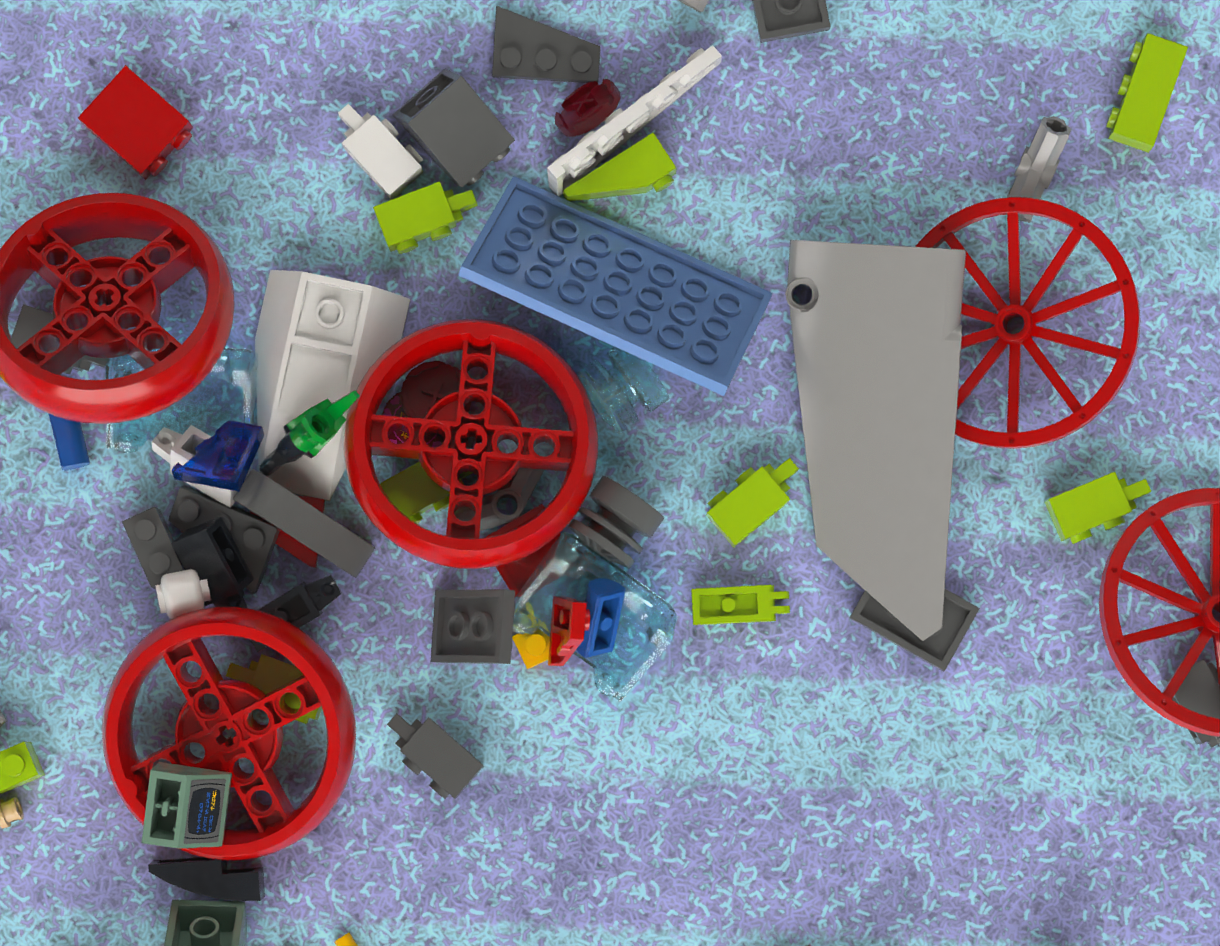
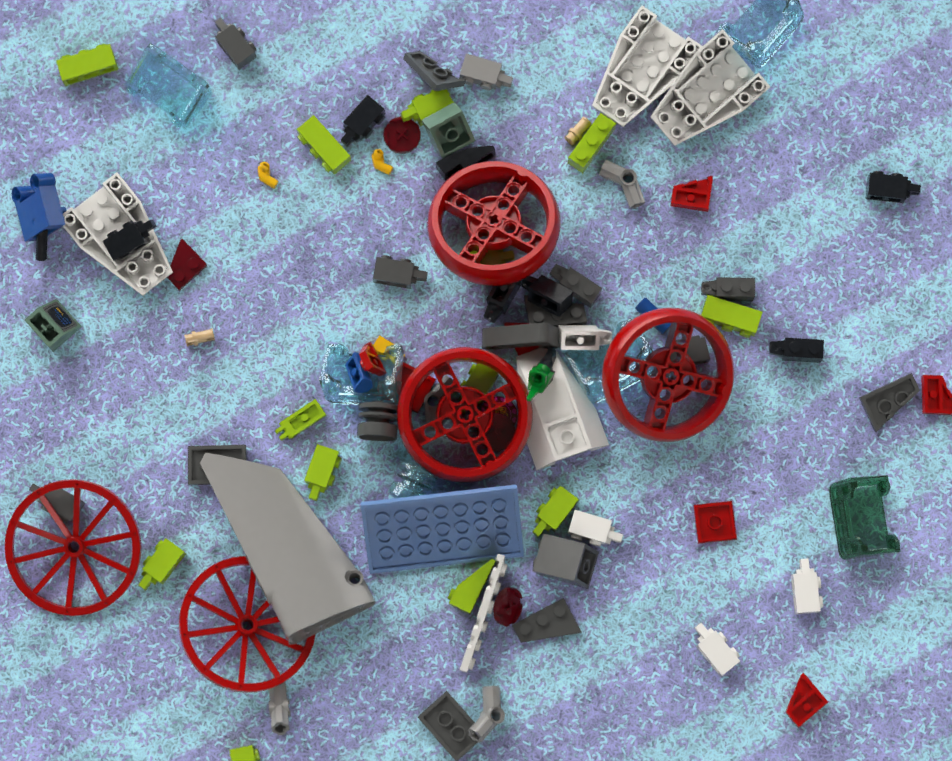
camera: 150 degrees right, 5 degrees down
(136, 123) = (713, 474): red brick -> none
(182, 51) = (715, 522): none -> red tile
(182, 593) = (553, 270): white head -> none
(186, 806) = (490, 176): sand green slope -> none
(223, 458) = (572, 340): clear blue wing -> none
(473, 626) = (414, 335): dark grey plate -> none
(826, 844) = (199, 337): none -> tan pin

